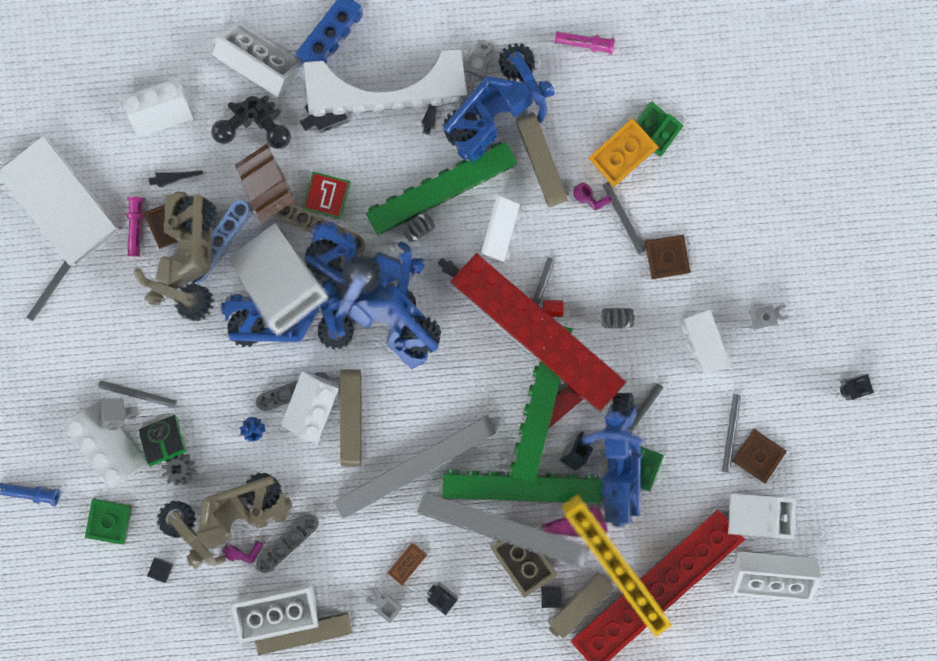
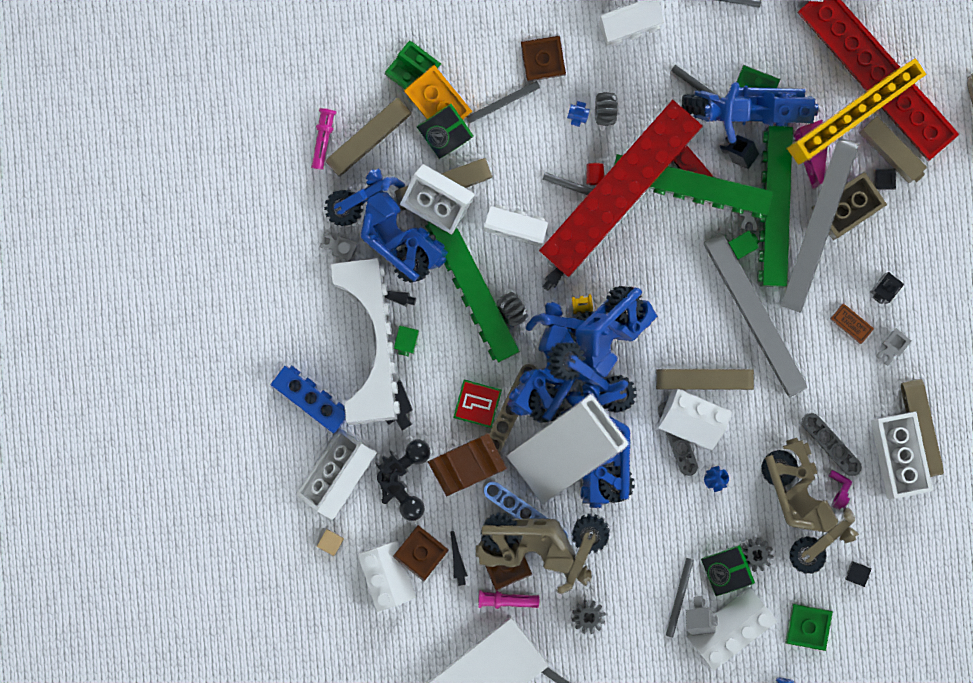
camera: 90 degrees left, 0 degrees up
(111, 304) = (588, 624): none -> dark grey gear
(180, 140) = (420, 553): none -> reddish brown tile
(191, 54) = (330, 542): none -> tan tile
(387, 124) = (406, 340): none -> green brick
(428, 295) = (575, 301): none -> yellow bush
(484, 455) = (744, 244): none -> green brick
(525, 150) = (437, 199): none -> white slope
(584, 194) = (479, 141): magenta plate -> none
(587, 86) = (368, 137): none -> dark tan beam
(593, 159) = (445, 131): none -> black slope
(612, 291) = (578, 113): none -> blue gear

